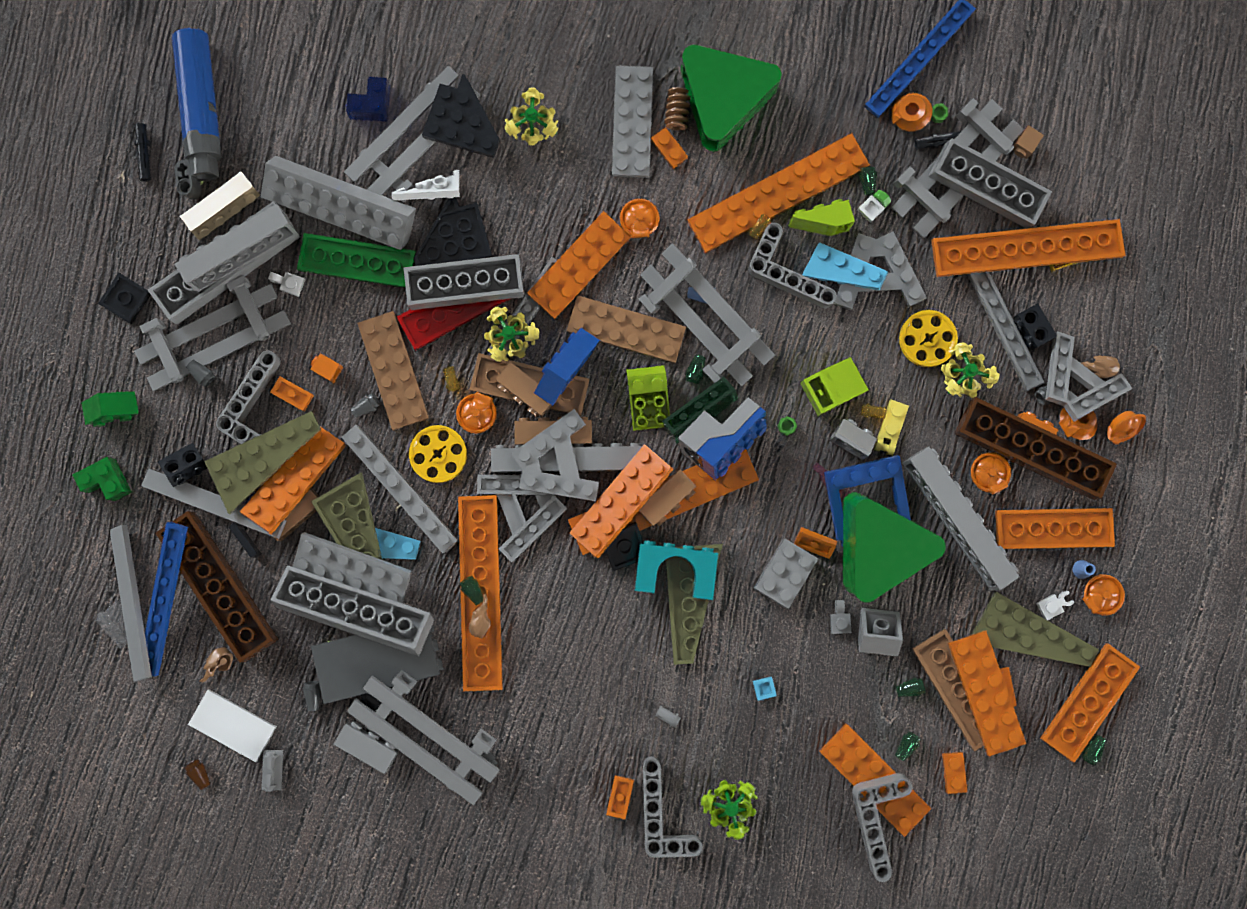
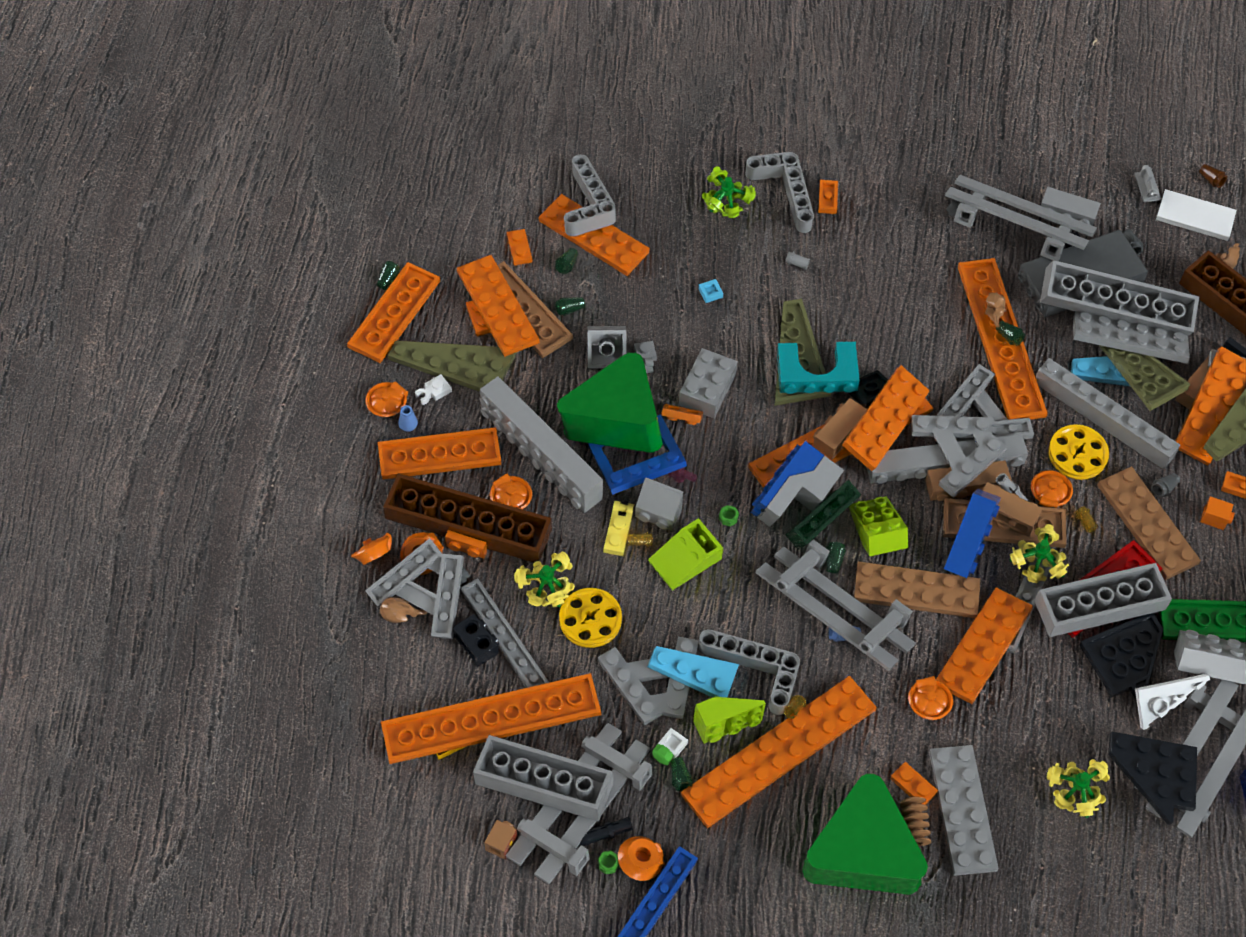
camera: 170 degrees right, 25 degrees down
(516, 411) = (1005, 483): none -> light grey pin

